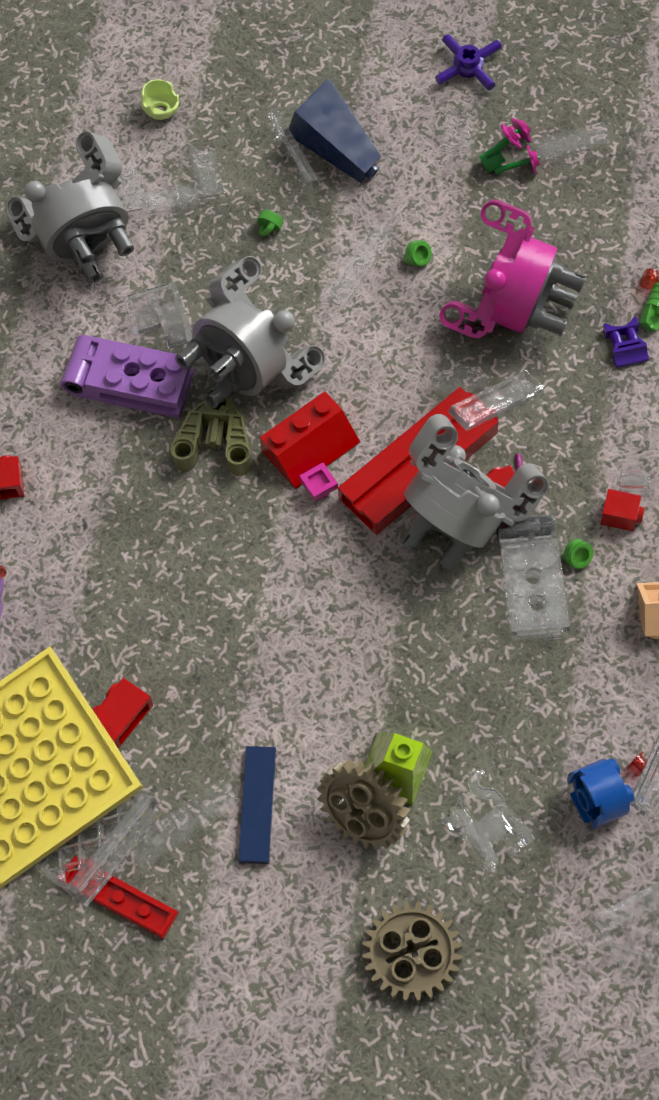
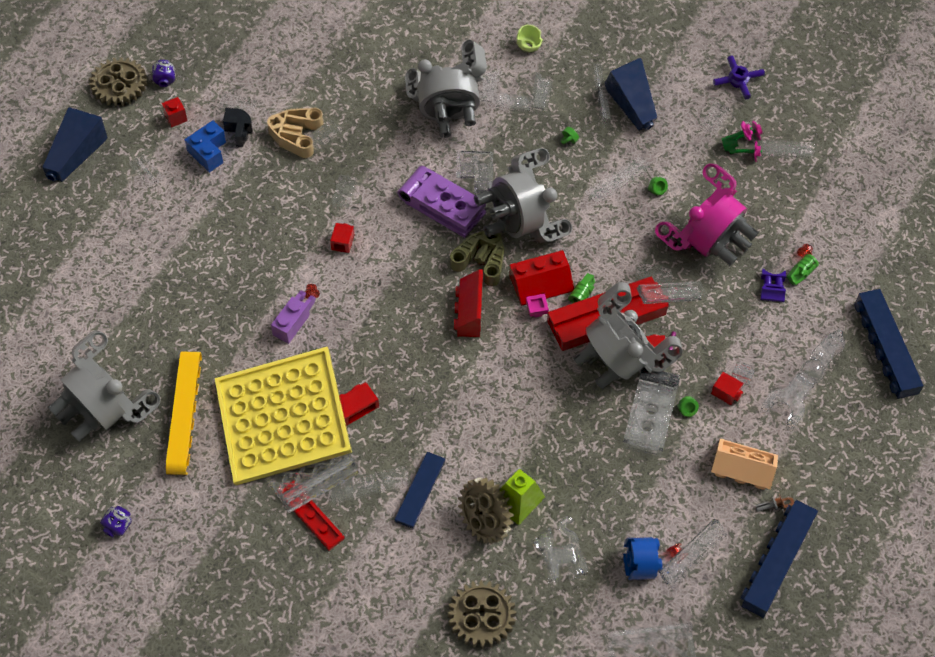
camera: 15 degrees right, 5 degrees down
(225, 514) = (469, 305): none -> red slope
(371, 437) = (582, 289): none -> bright green hinge

